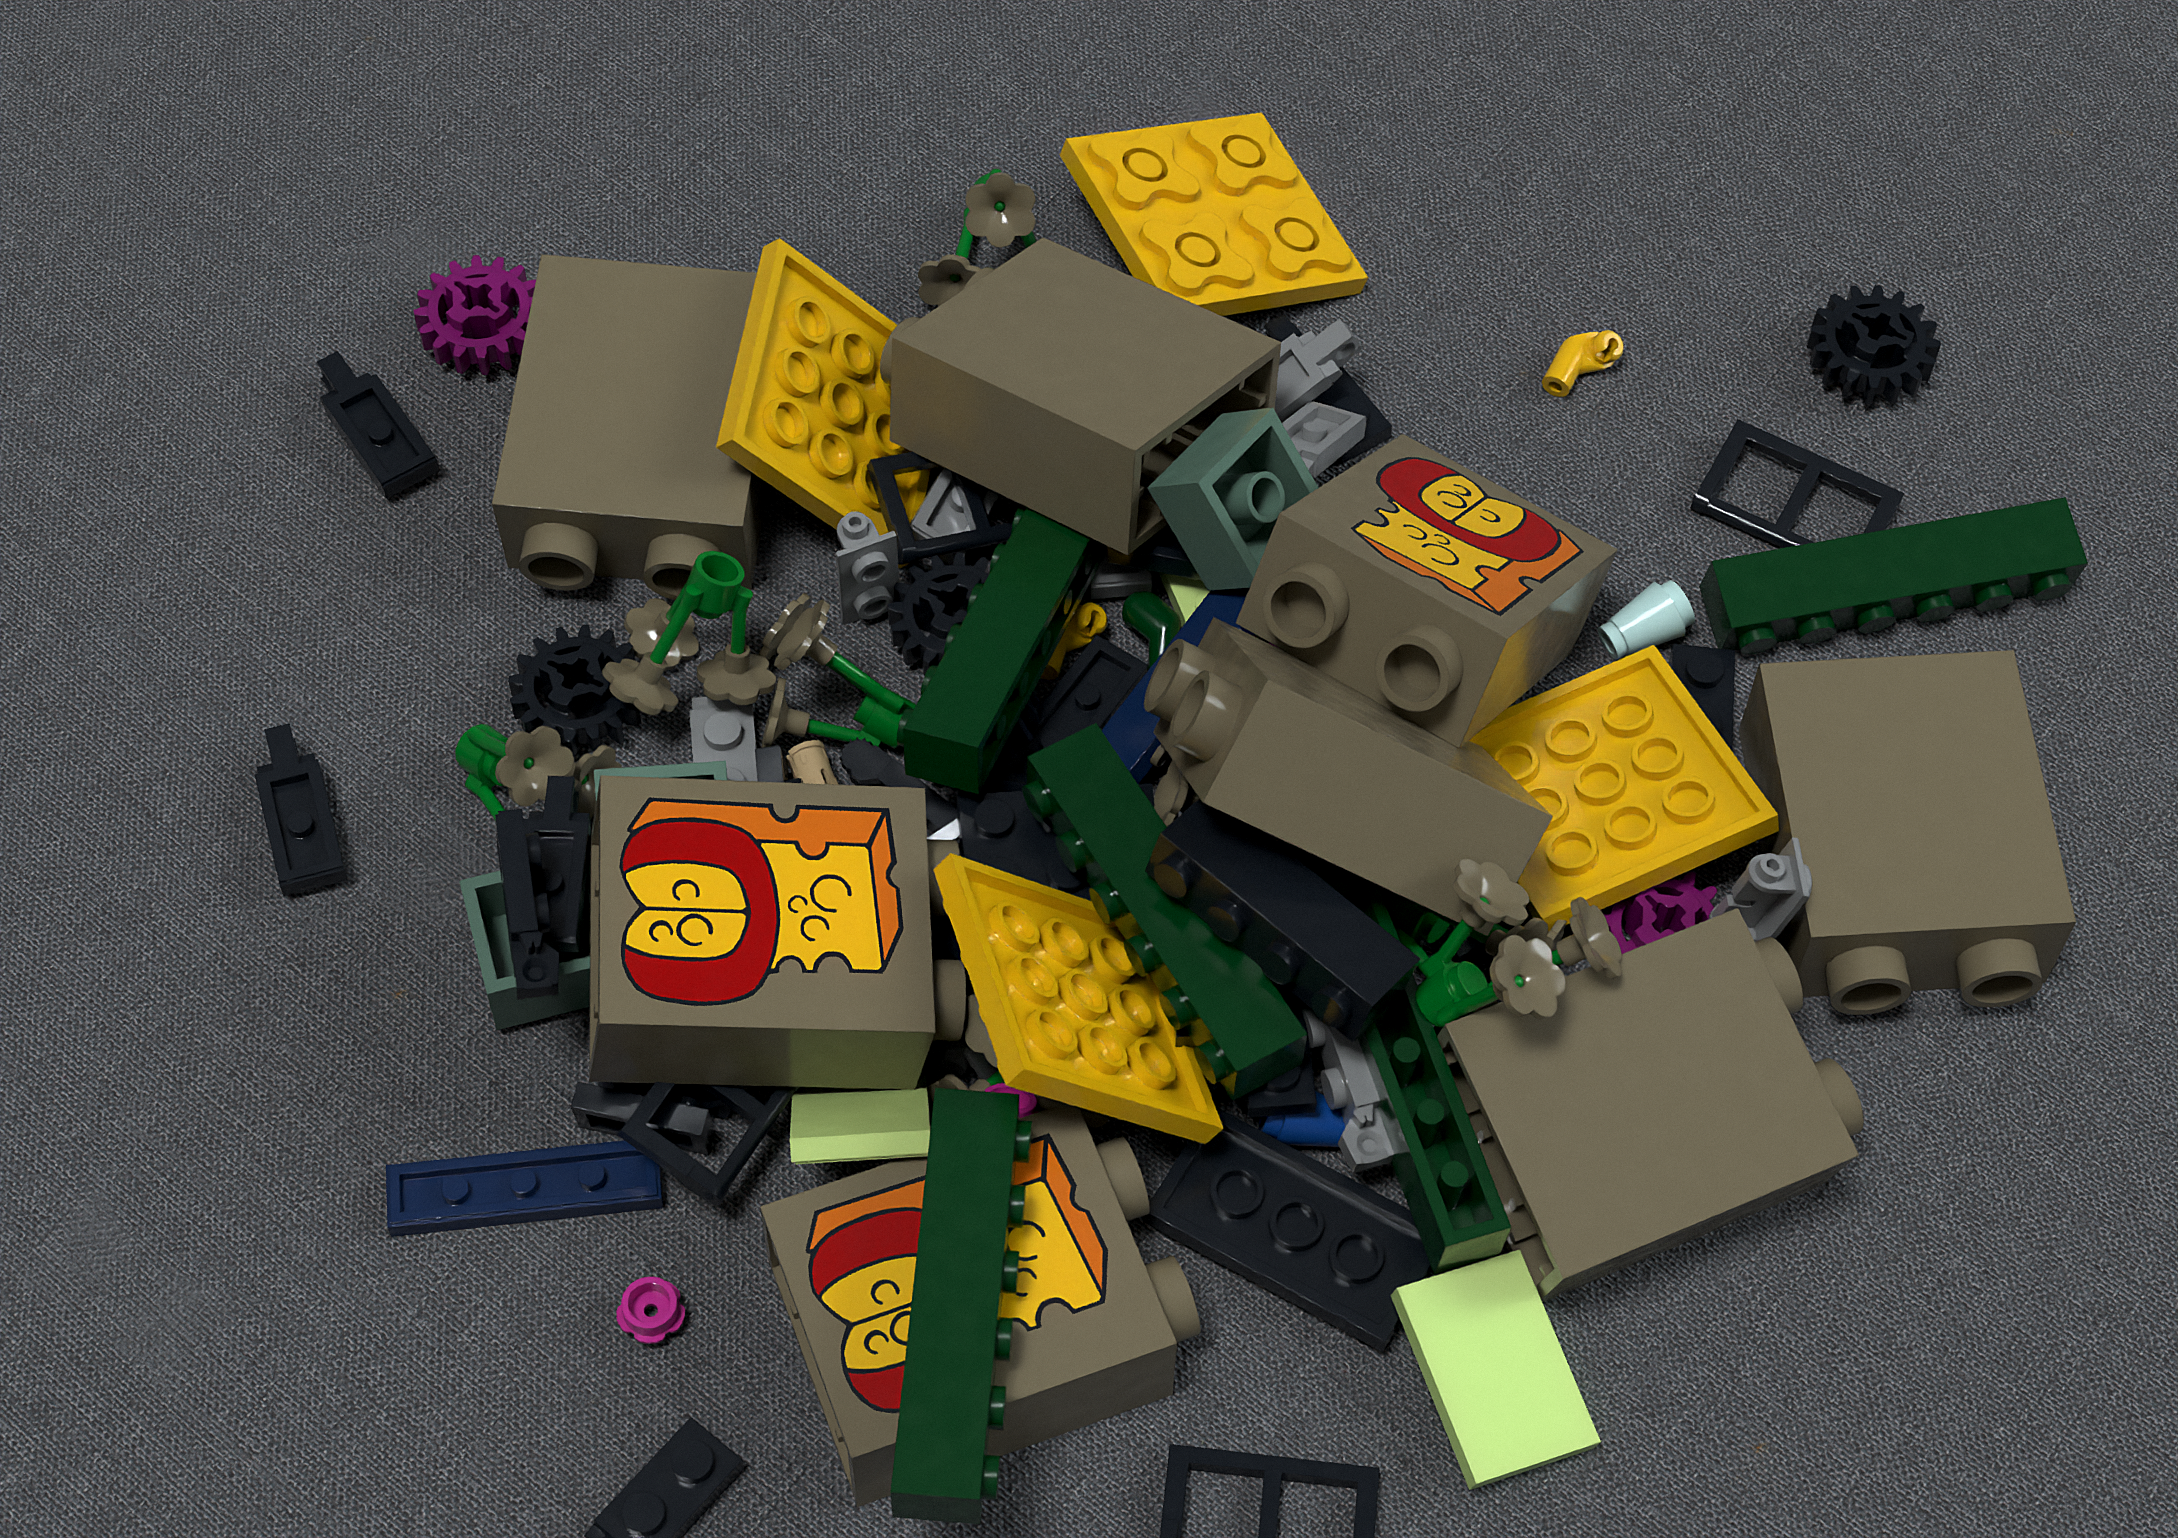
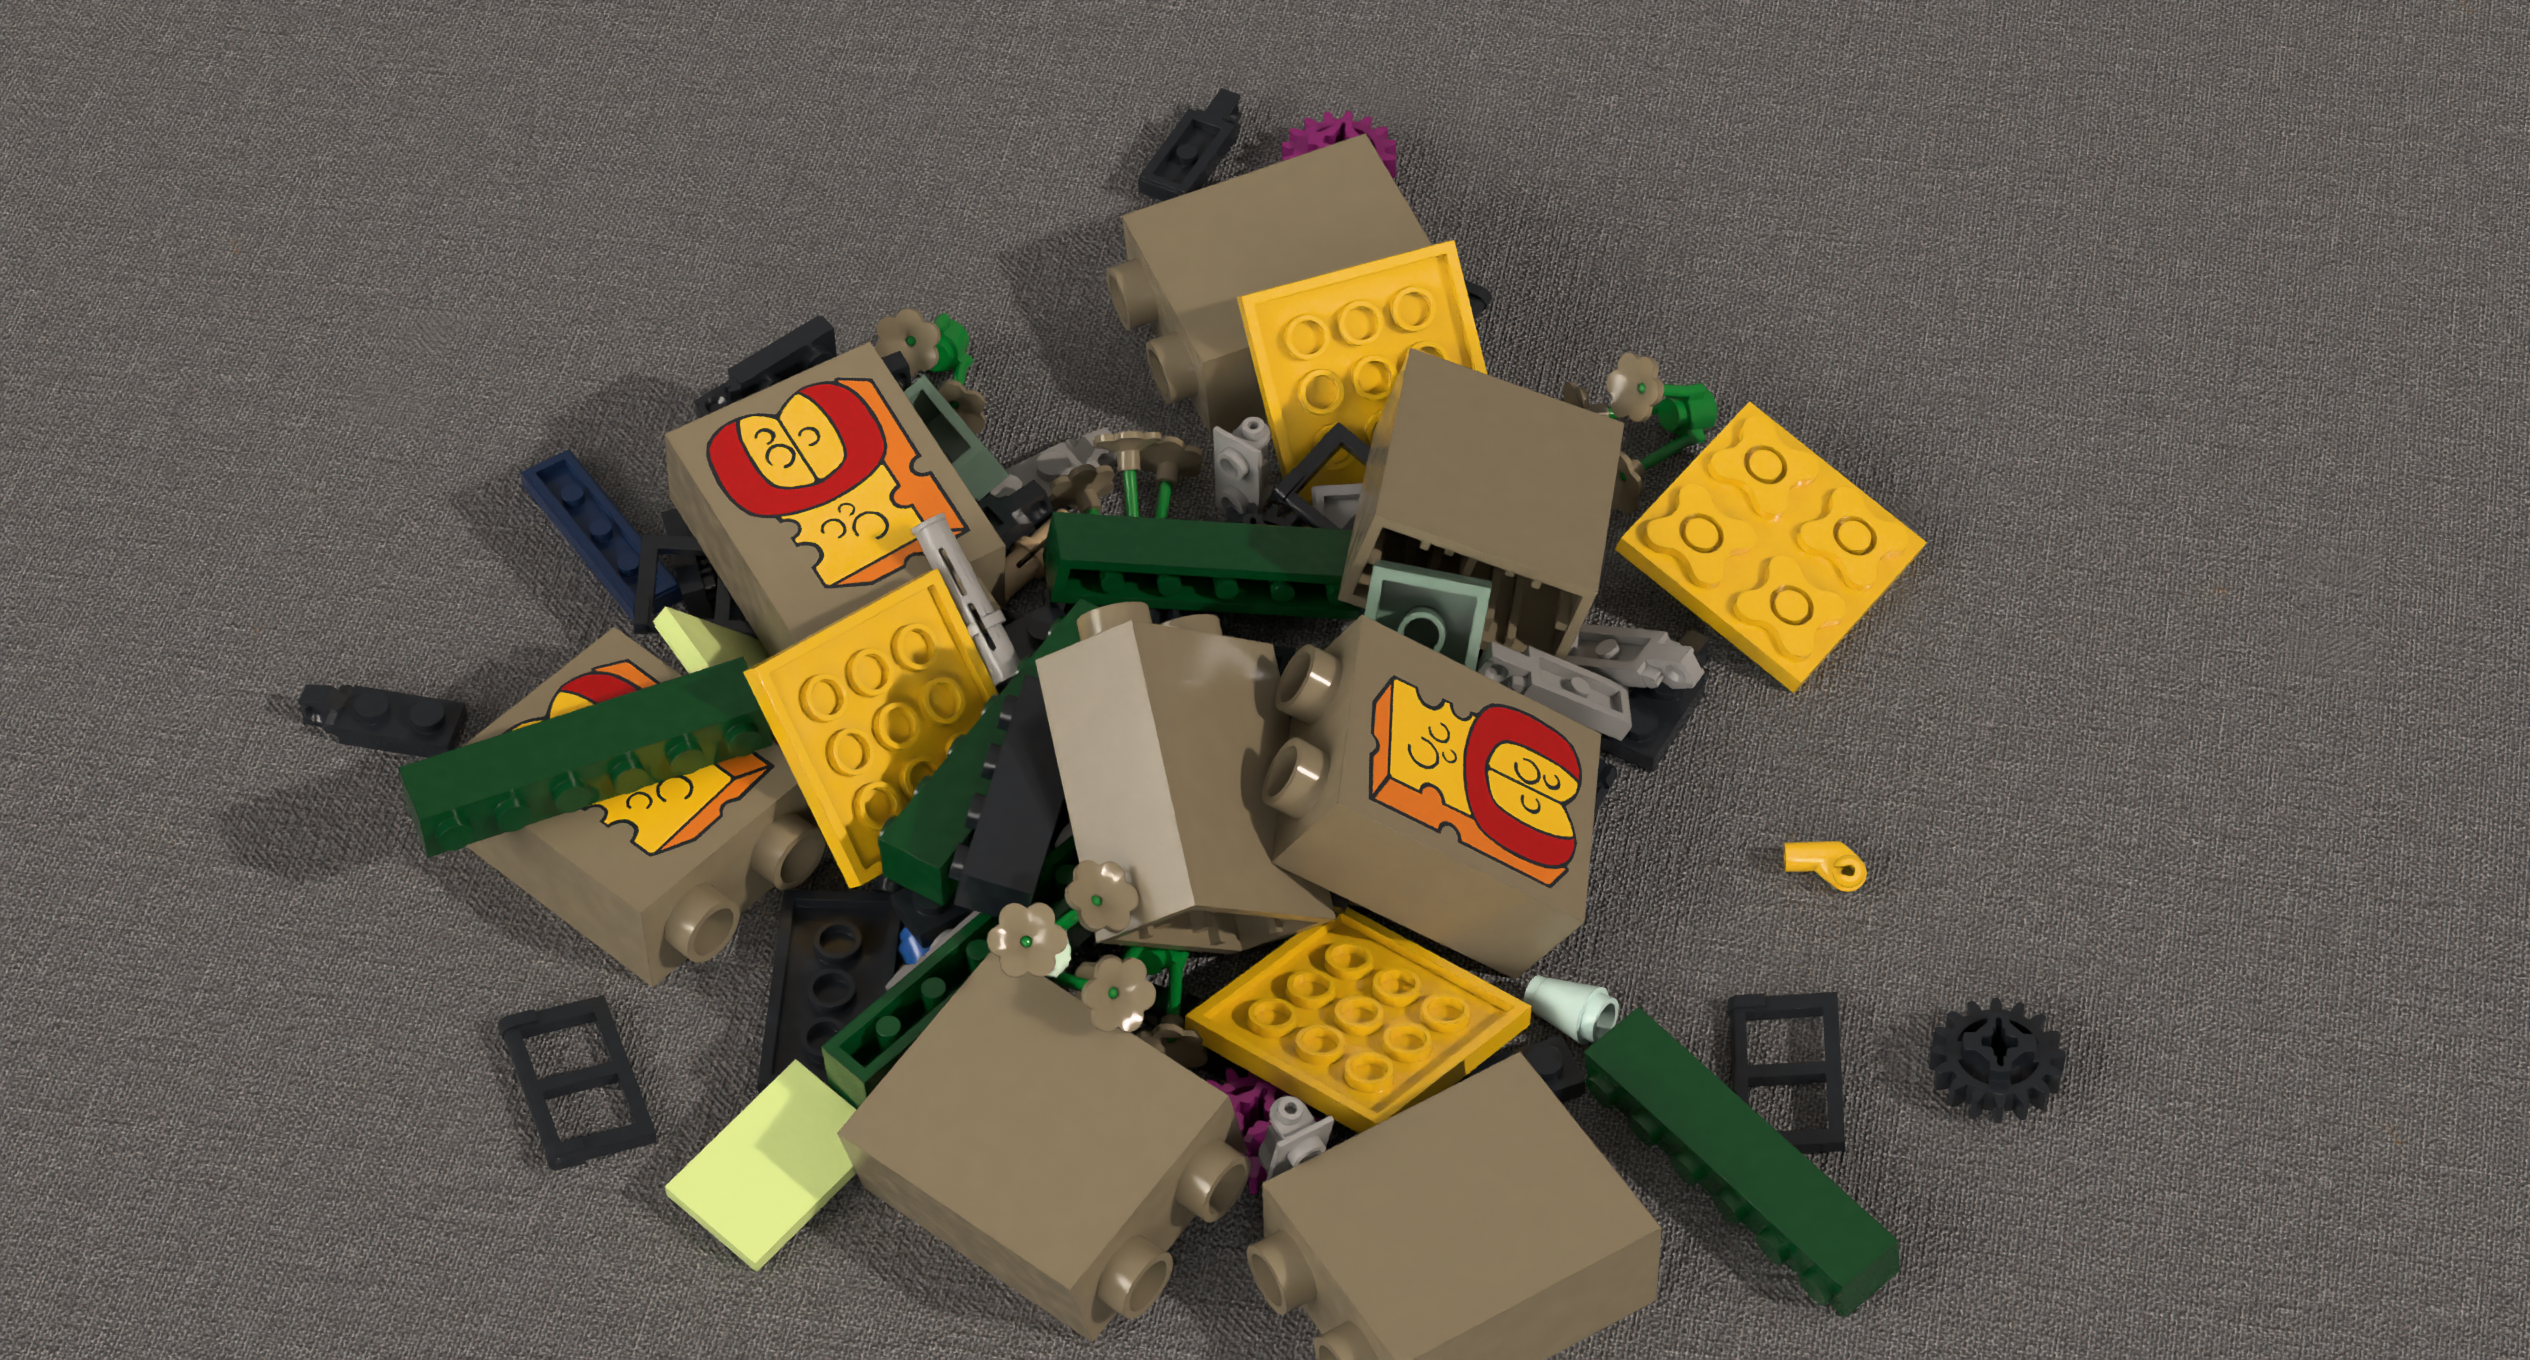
camera: 65 degrees right, 10 degrees down
(298, 816) = (825, 267): black hinge -> none
(574, 687) = (1060, 371): black gear -> none
(644, 1294) = (539, 644): dark pink plate -> none
(664, 637) = (1119, 393): dark tan plant -> none
(934, 842) = (936, 536): none -> light grey pin
(1085, 624) = (1288, 632): yellow arm -> none

